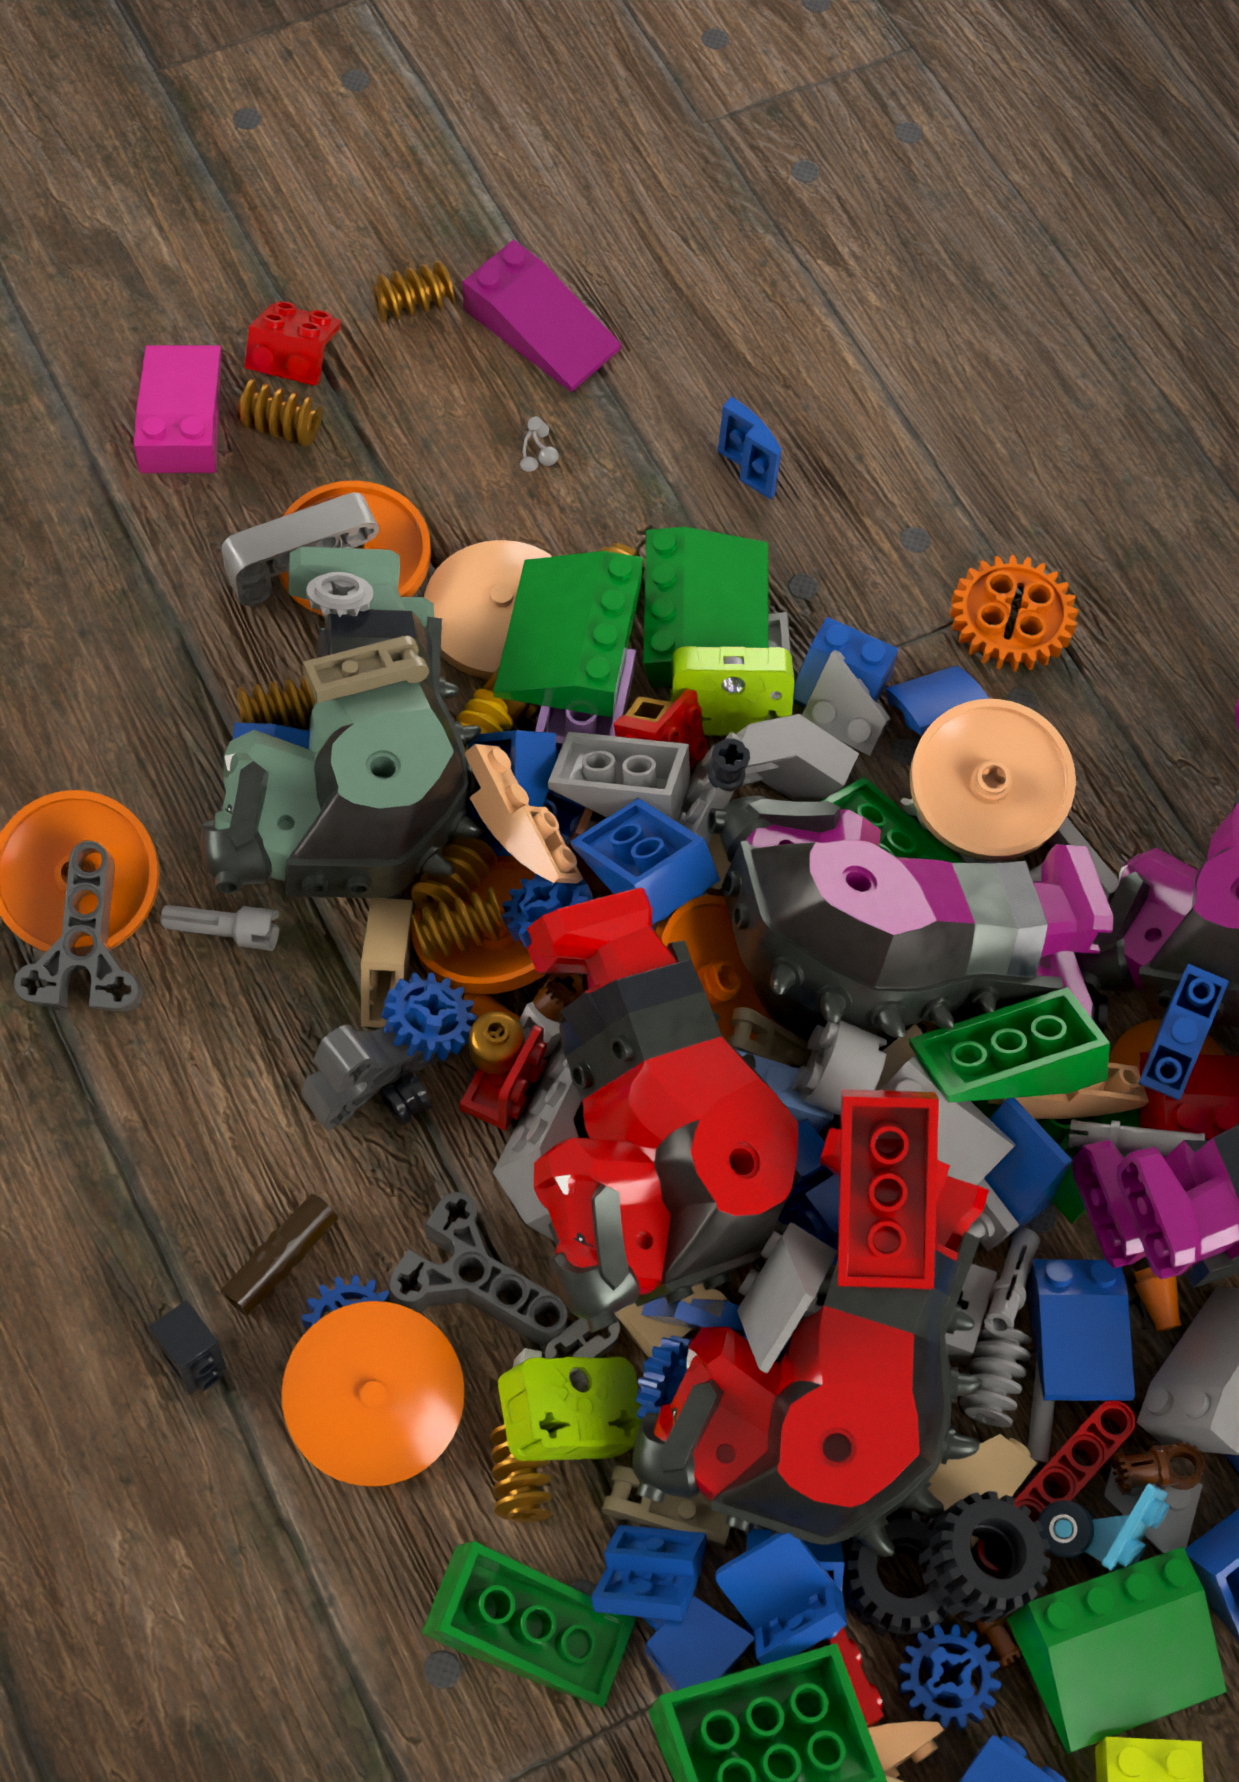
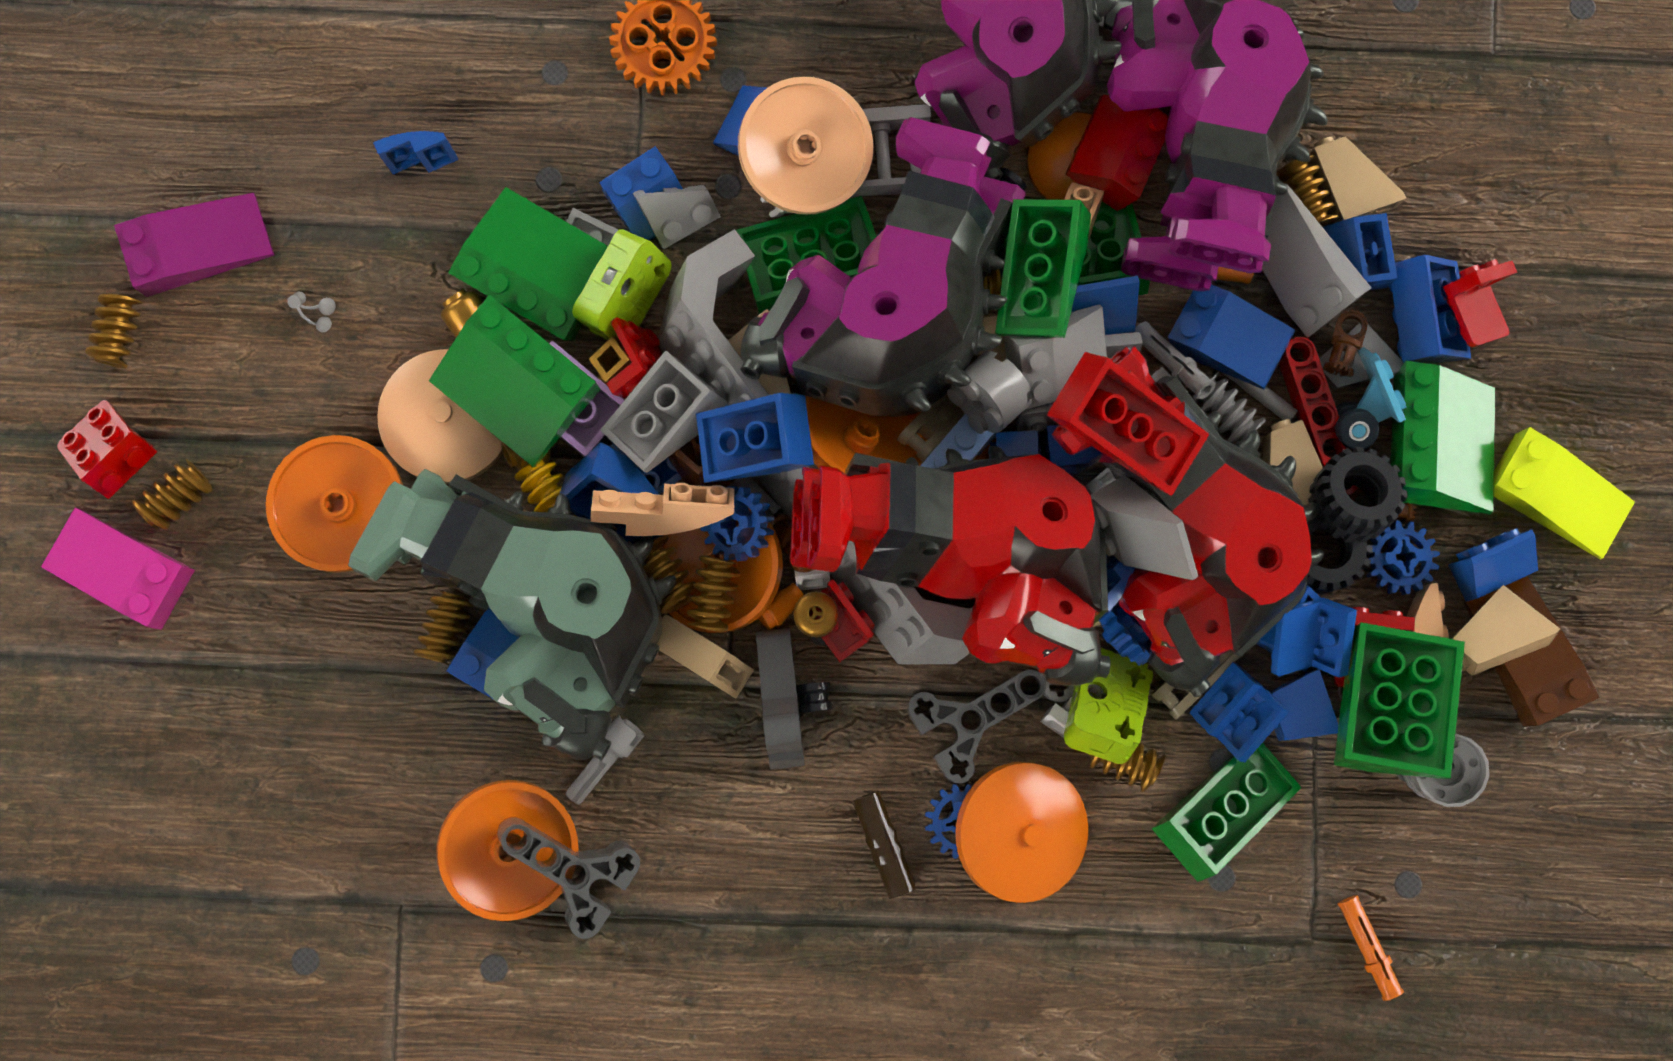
camera: 60 degrees left, 20 degrees up
(188, 1348) = (928, 943): black brick -> none
(264, 550) = (312, 544): light grey beam -> none
(339, 593) = (406, 539): light grey gear -> none
(365, 668) = (494, 564): dark tan plate -> none
(428, 1016) = (768, 639): blue gear -> none
(728, 776) = (712, 345): black bush -> none
(932, 695) = (707, 140): blue slope -> none
(1128, 1138) = (1132, 218): light grey pin -> none
(1182, 1032) = (1081, 141): blue slope -> none

